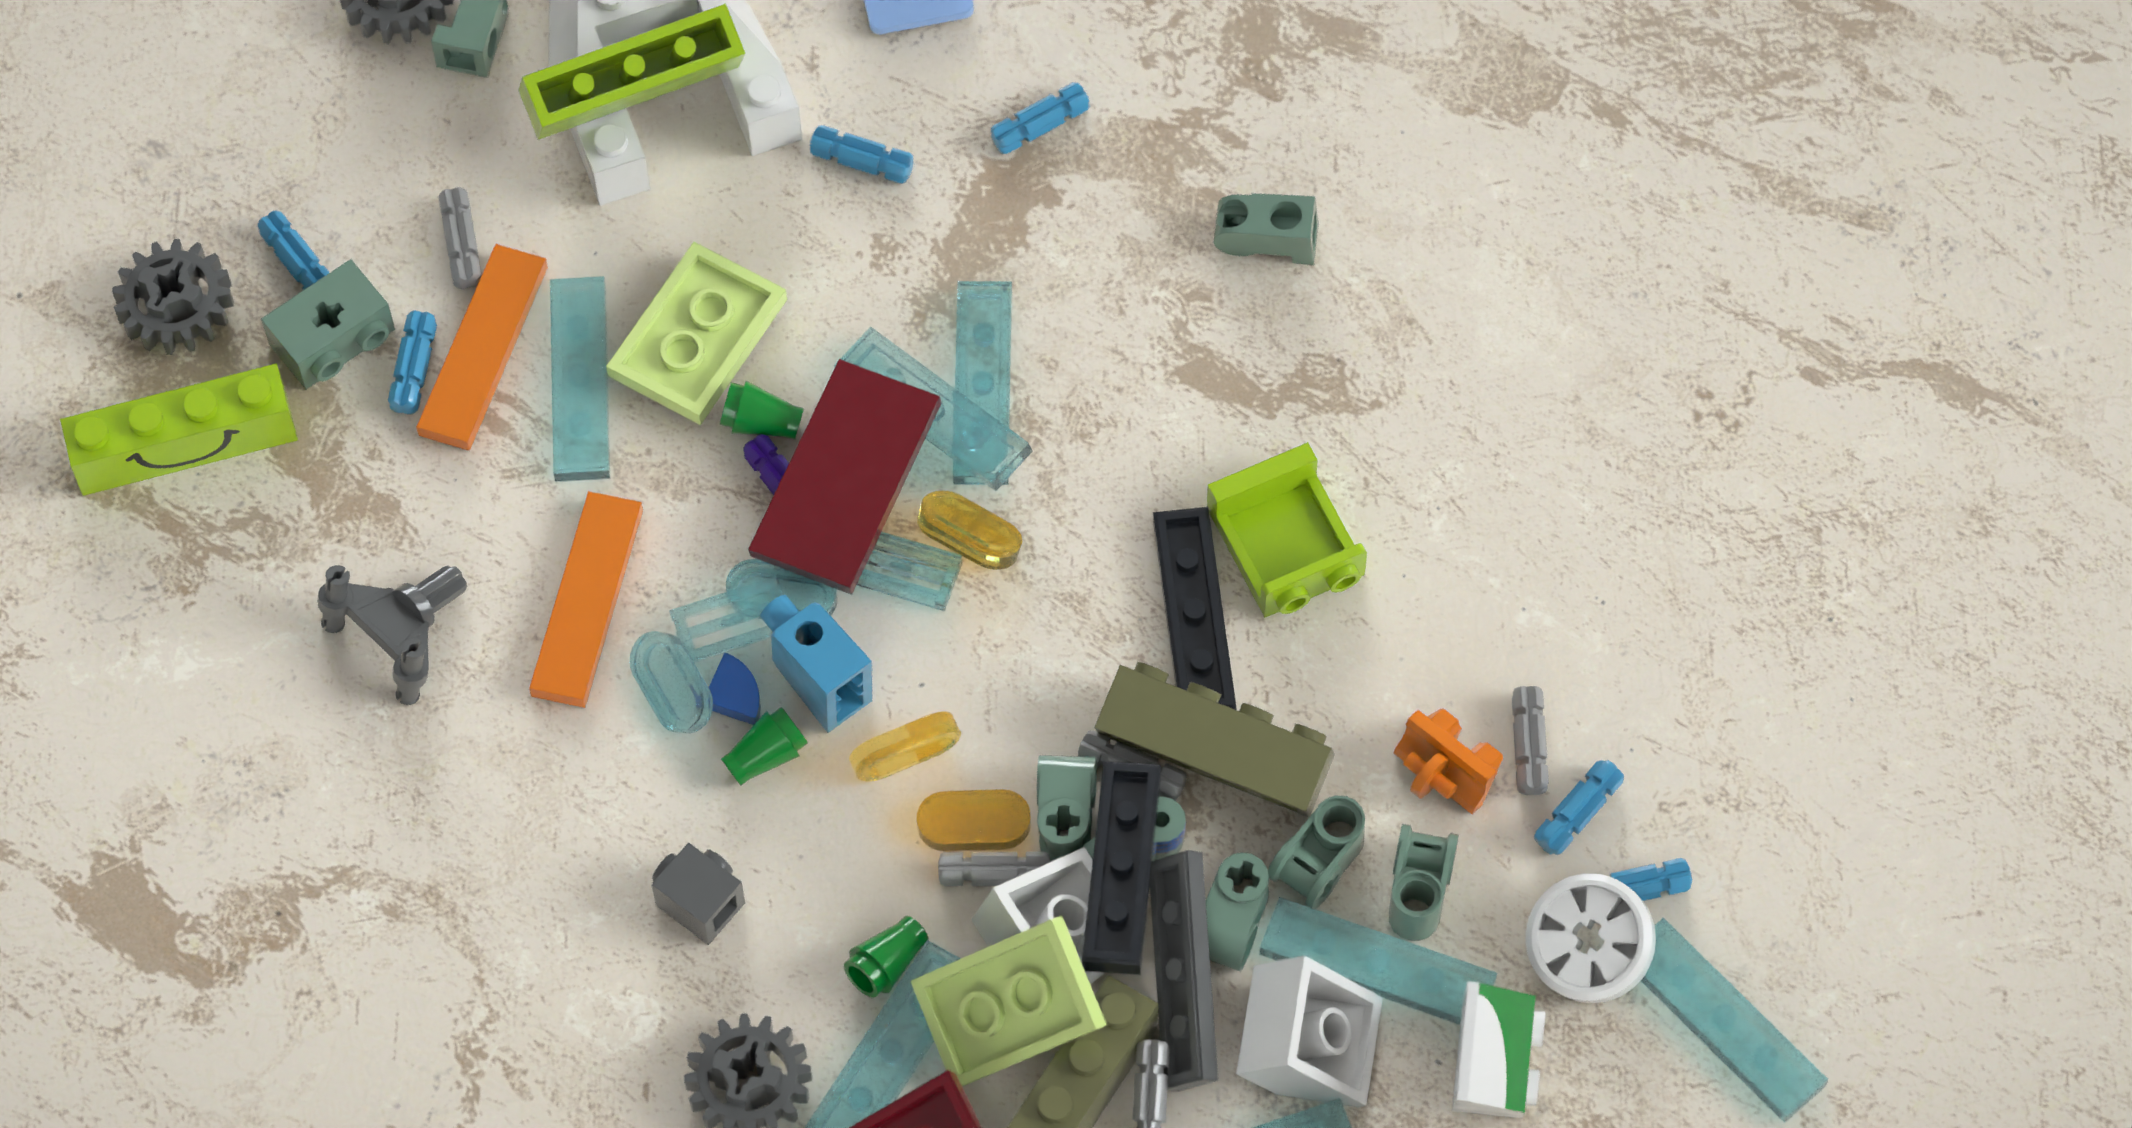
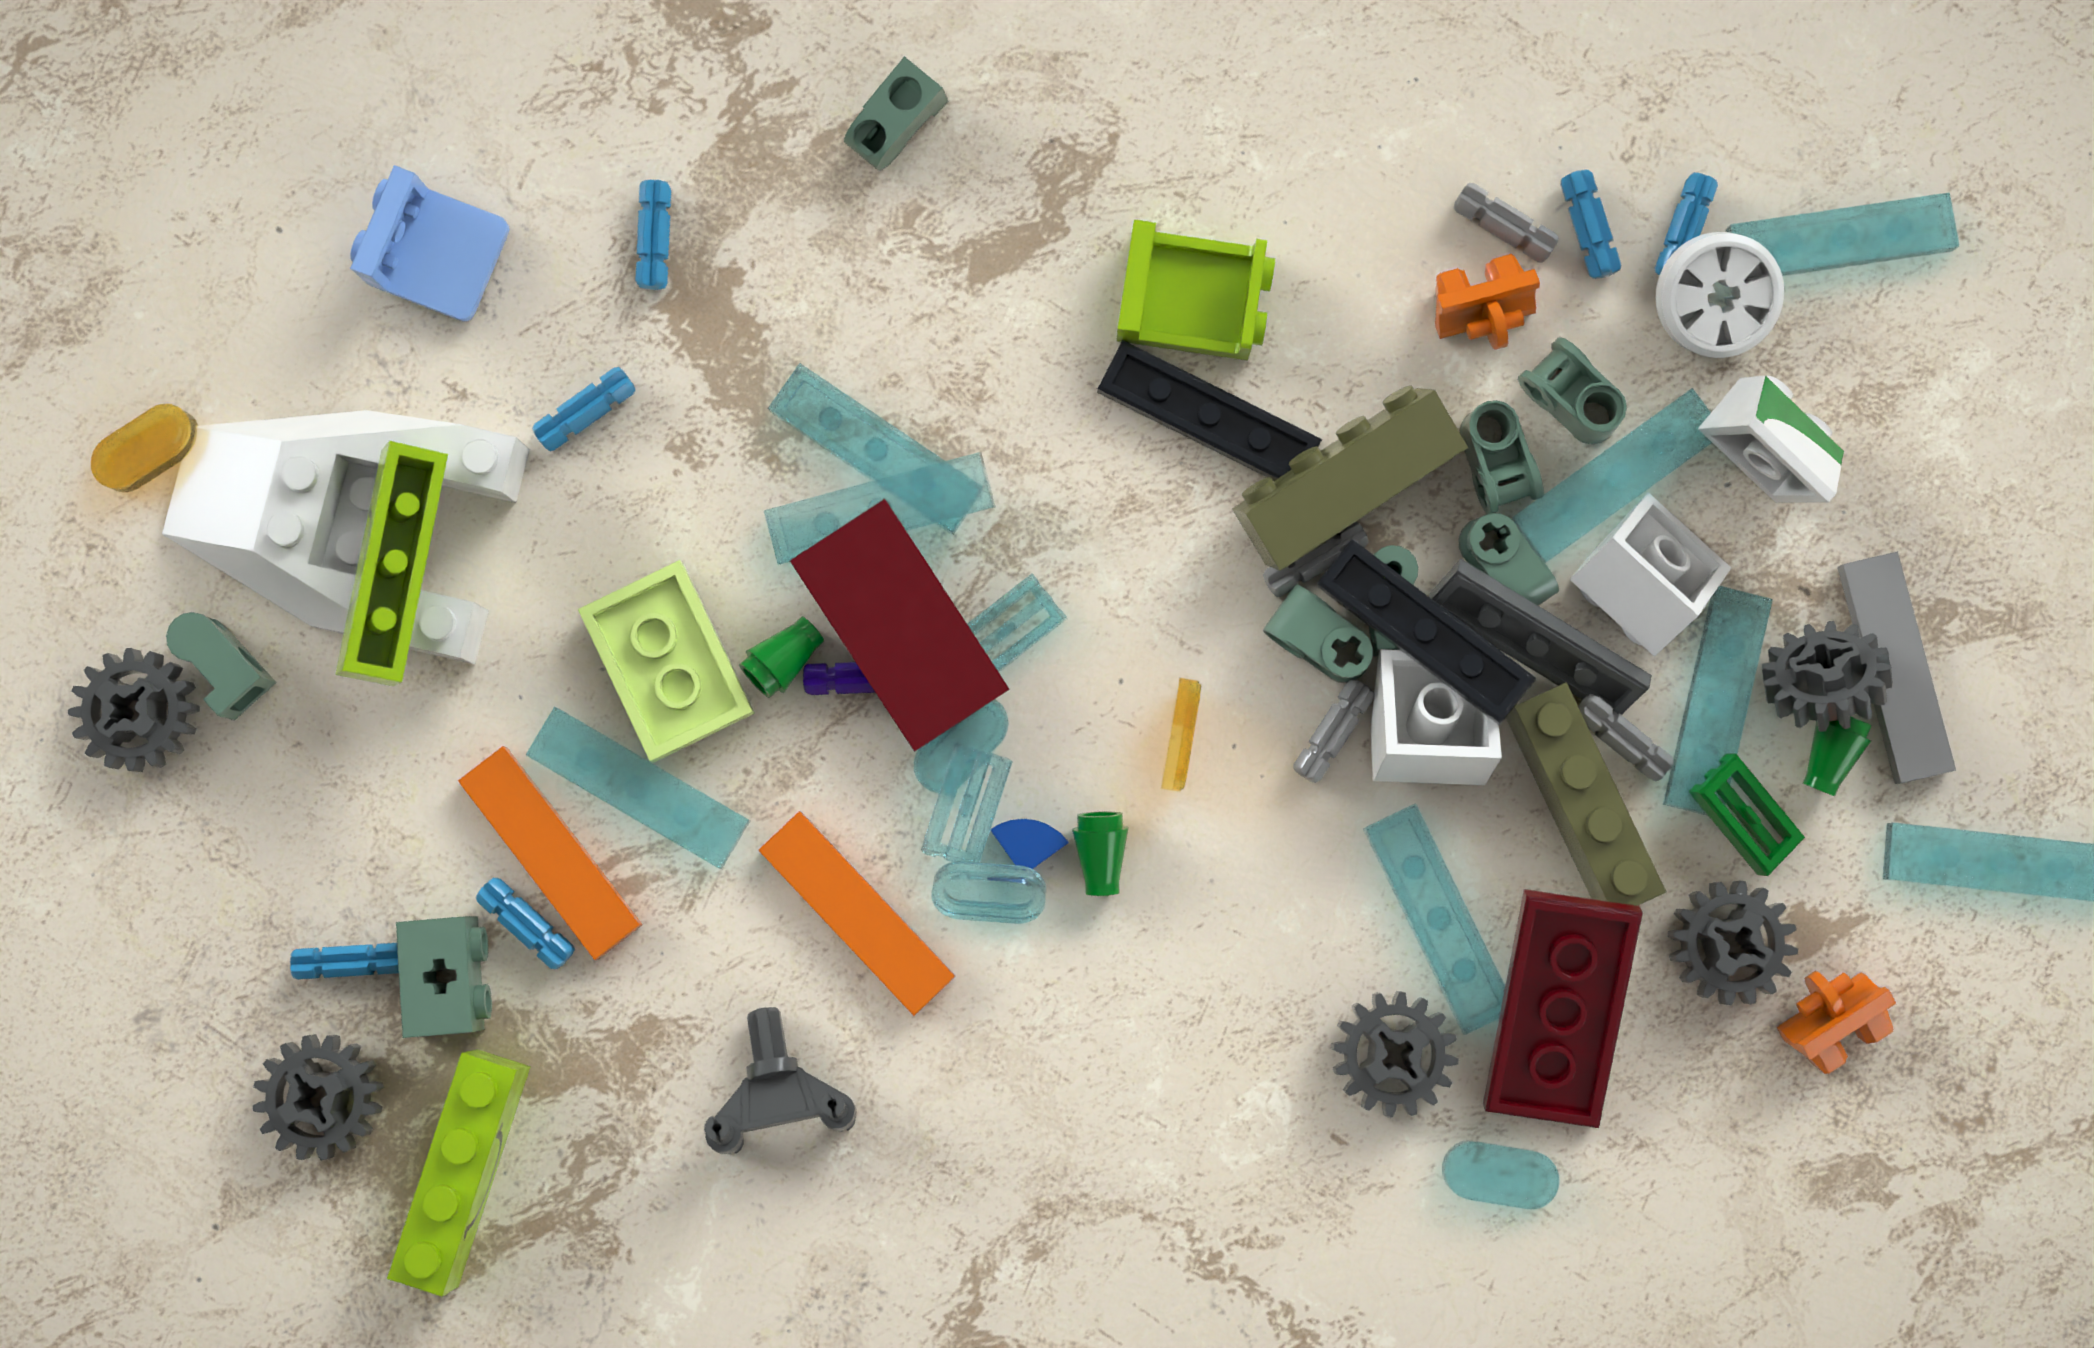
camera: 55 degrees left, 20 degrees up
(460, 237) = (428, 806): light grey axle -> none
(698, 891) = (1198, 990): dark grey brick -> none
(819, 661) = (1086, 756): dark azure torso -> none
(882, 959) = (1358, 872): green cone -> none
(969, 530) = (1011, 551): clear yellow tile -> none
(974, 820) = (1277, 718): clear yellow tile -> none
(1008, 1002) = (1491, 804): yellowish green plate -> none

